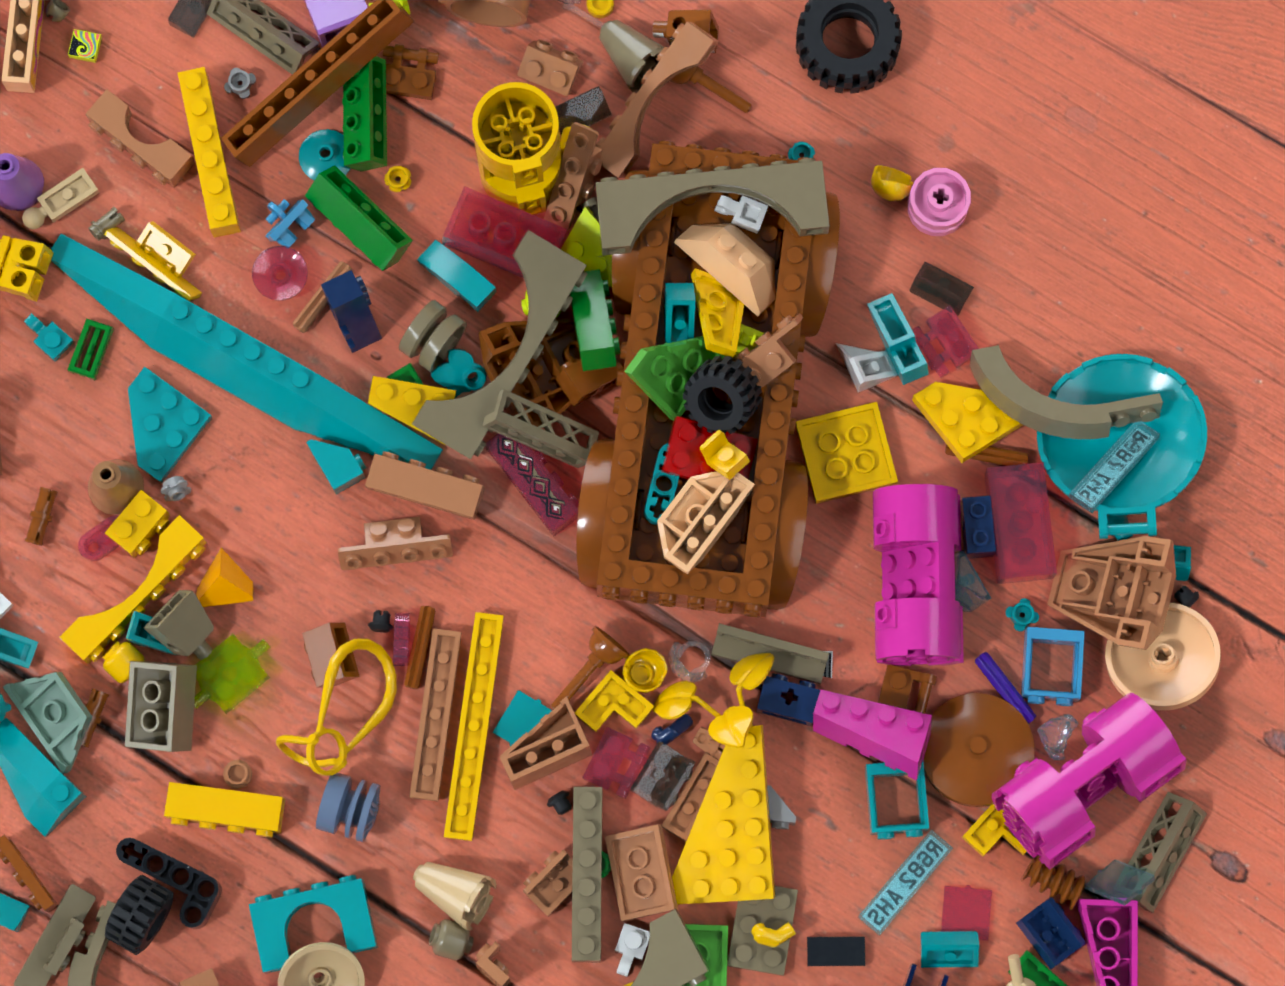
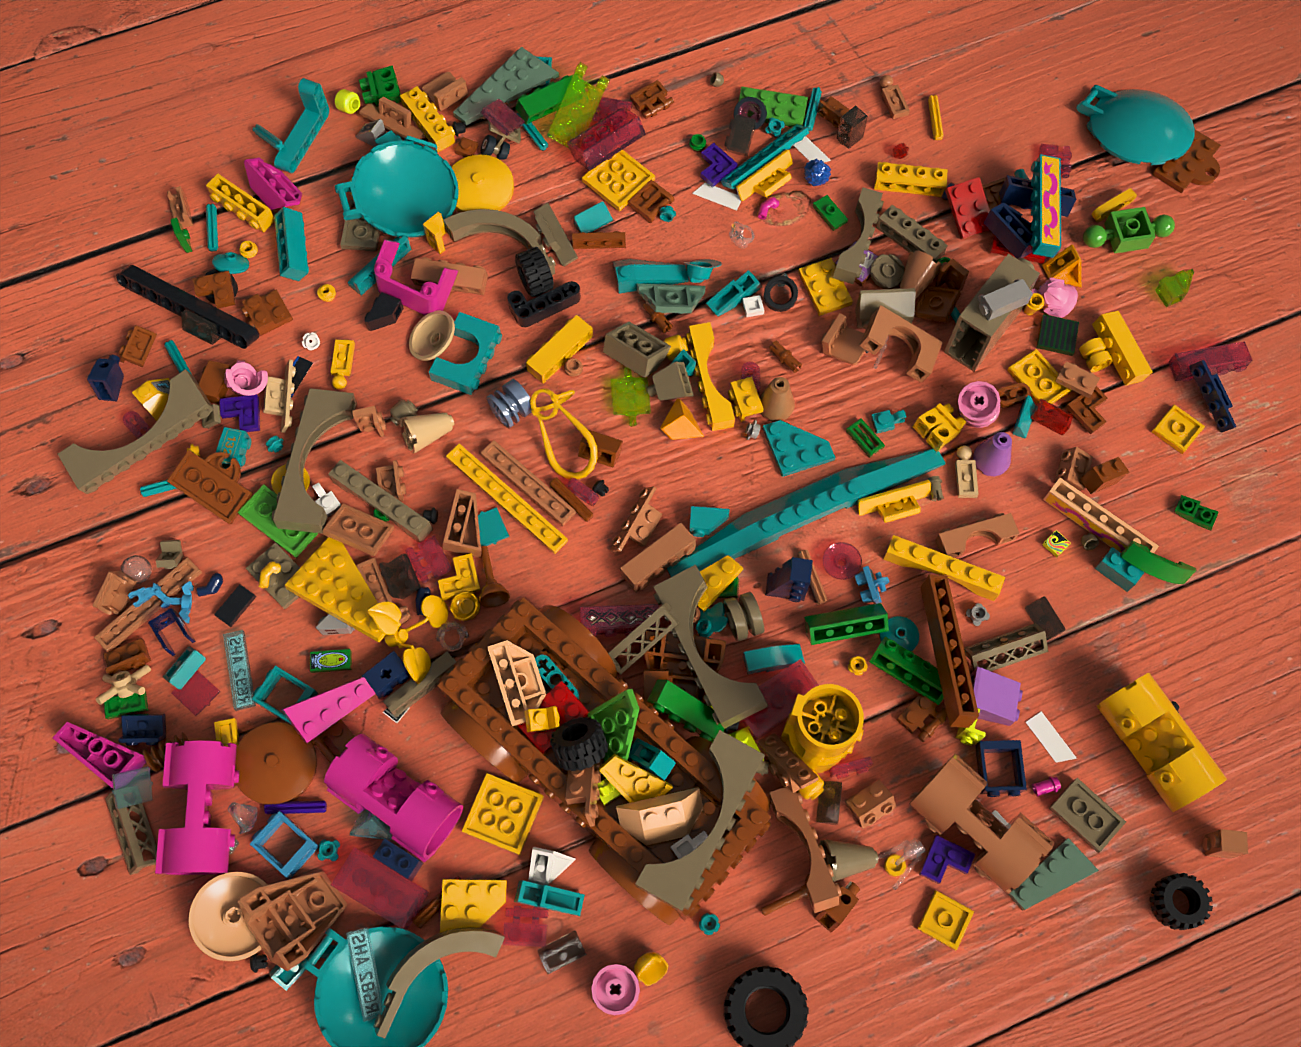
camera: 125 degrees right, 10 degrees down
(818, 782) = (330, 660): none -> tile

